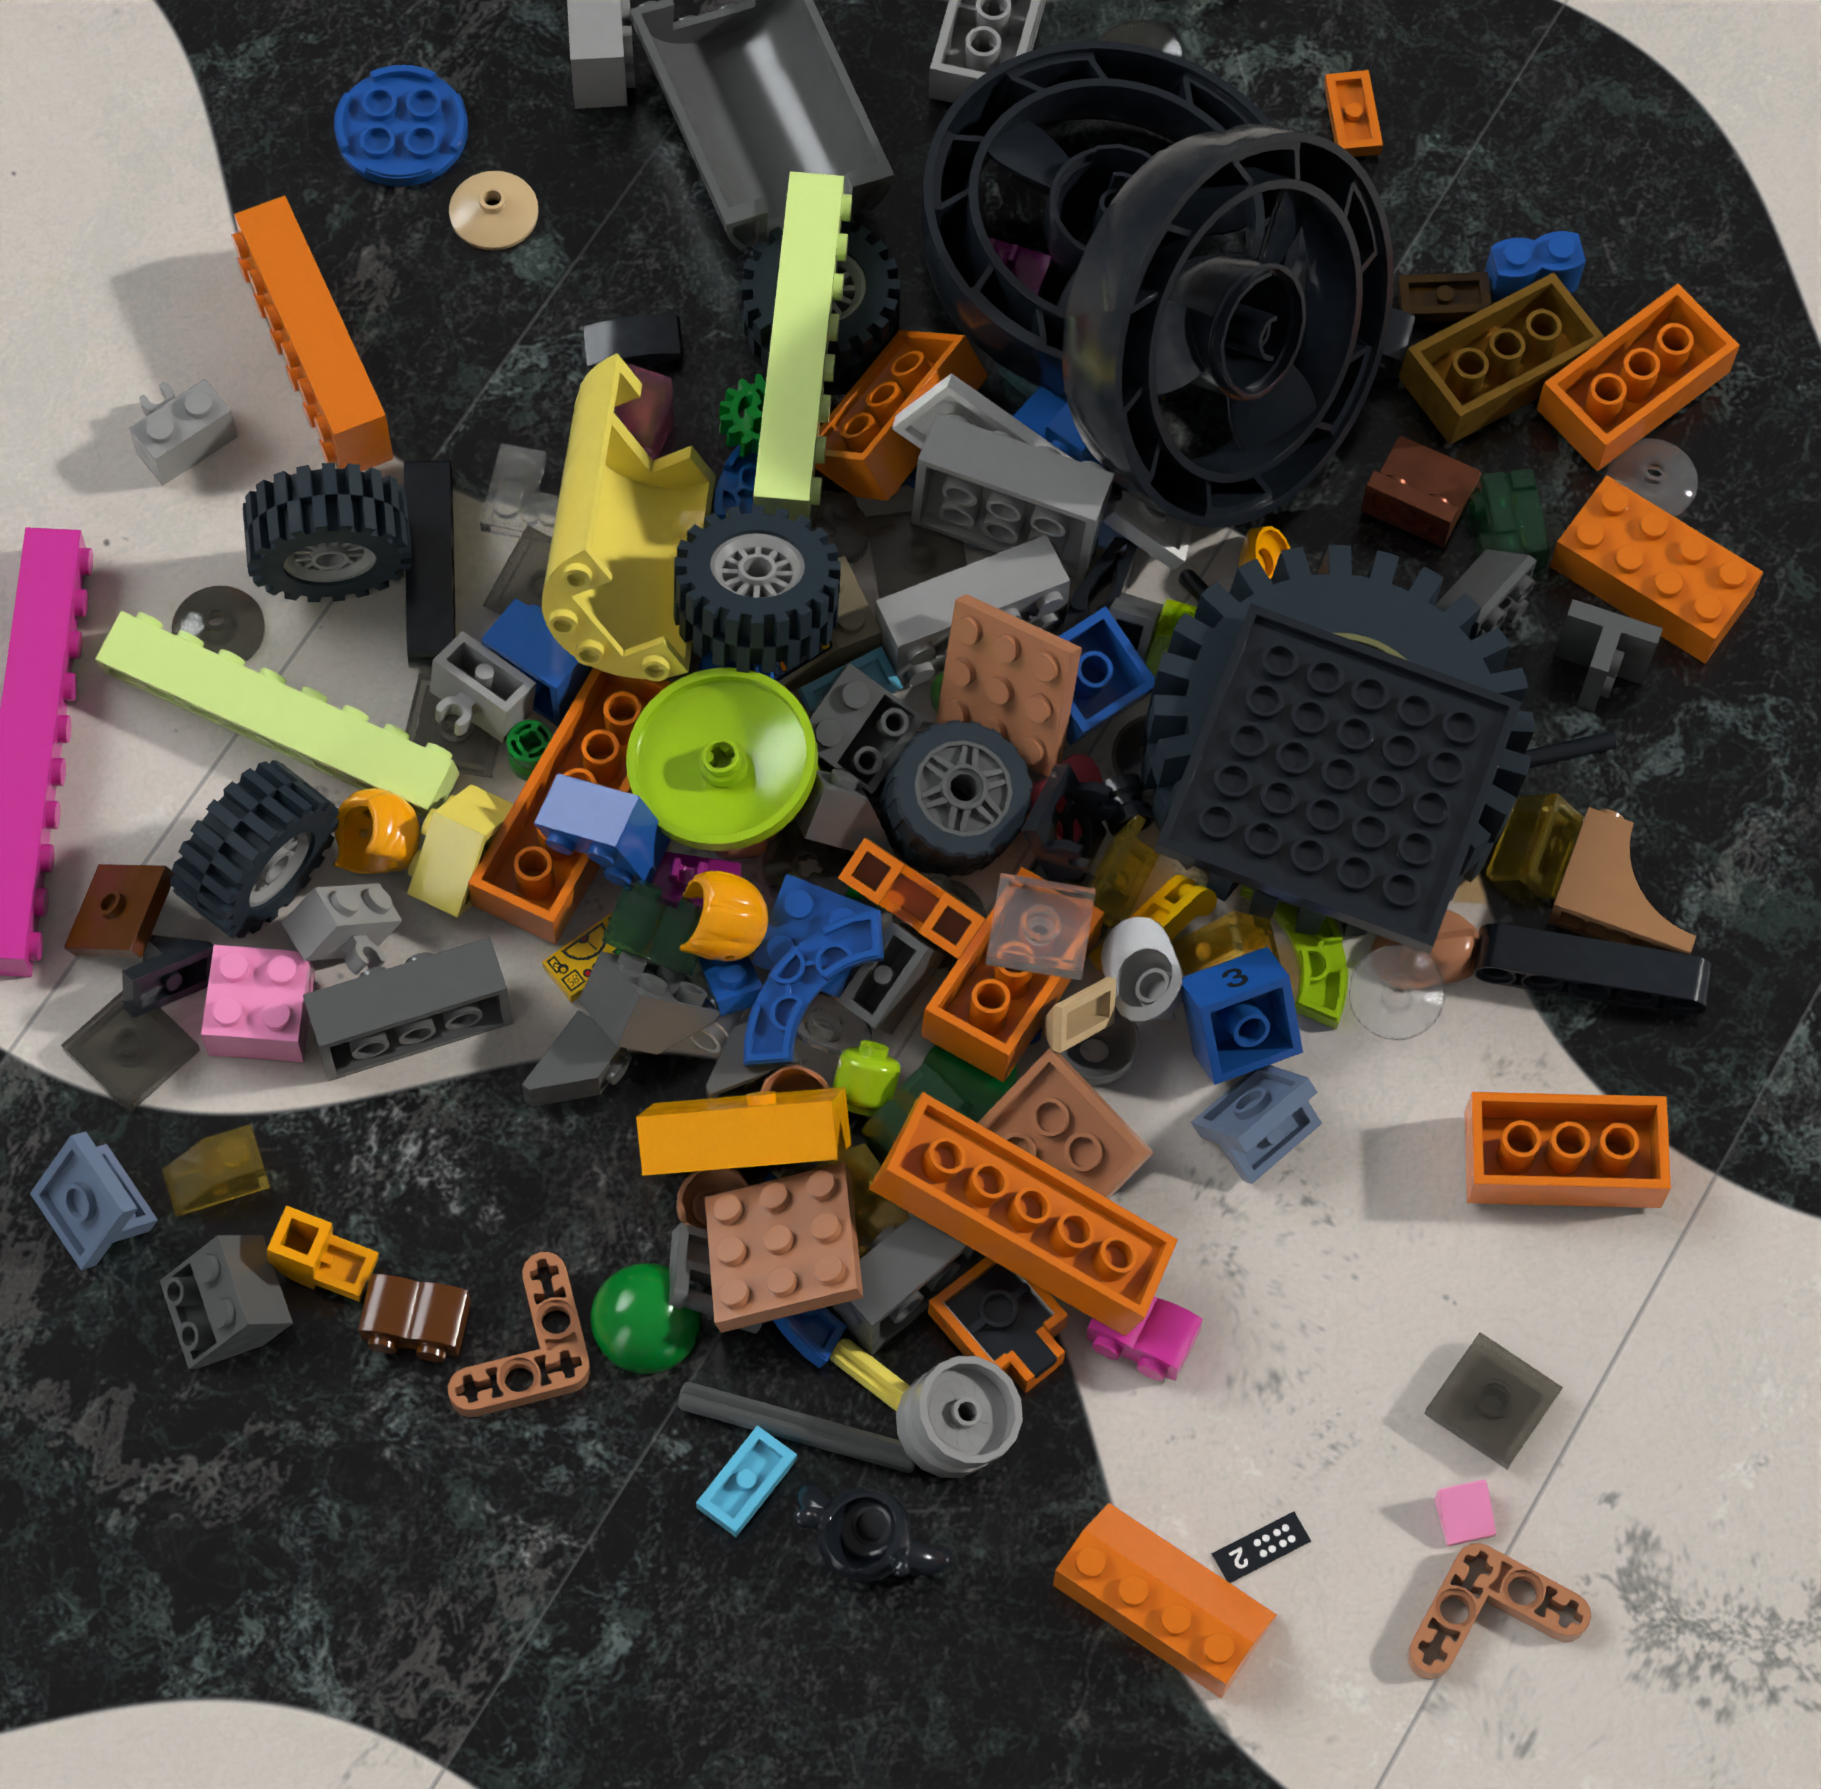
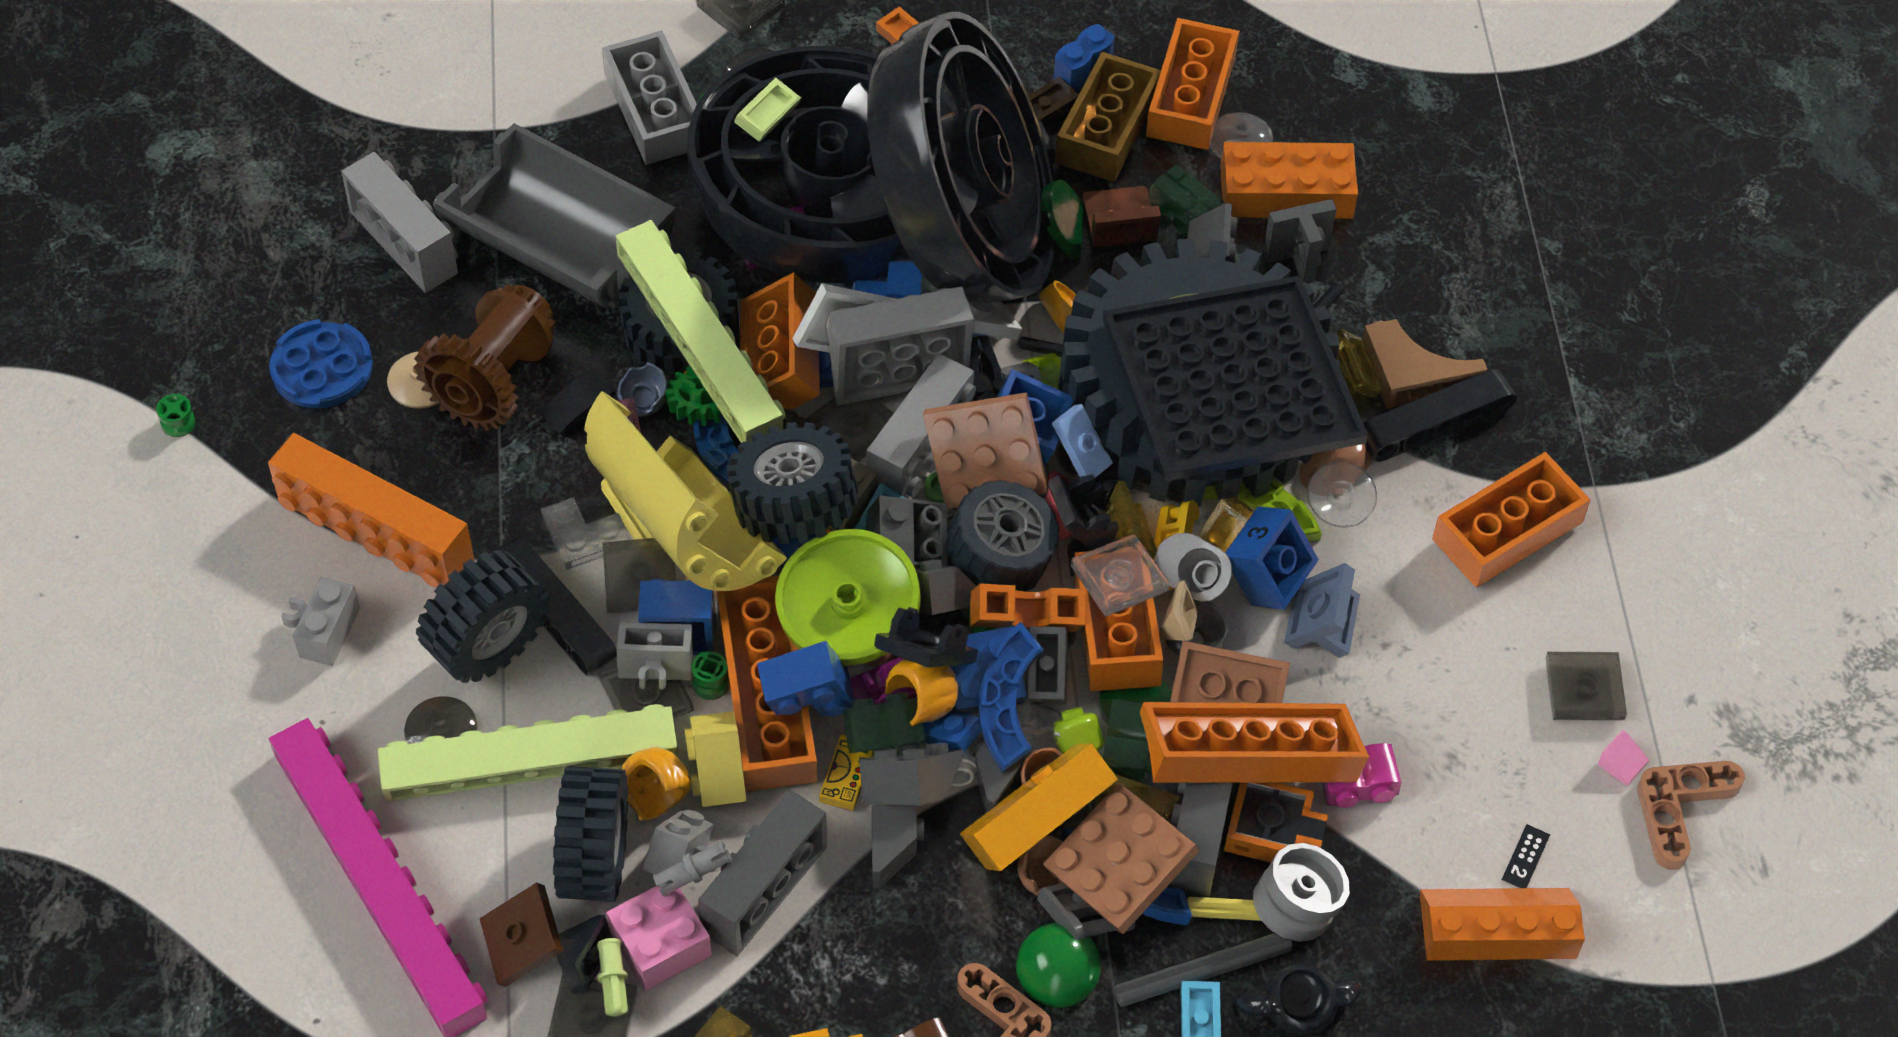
camera: 35 degrees left, 10 degrees down
(173, 1019) = (612, 977): none -> yellowish green axle
(210, 85) = (180, 408): none -> green wheel
(323, 957) = (692, 868): none -> light grey pin
(532, 239) = (472, 372): none -> reddish brown piece
(709, 371) = (647, 388): none -> sand blue hair
(771, 888) = (925, 647): none -> black piece
(1076, 118) = (767, 109): none -> yellowish green tile
(1126, 743) = (1081, 442): none -> light blue plate
(1346, 452) = (1065, 216): none -> dark green tile

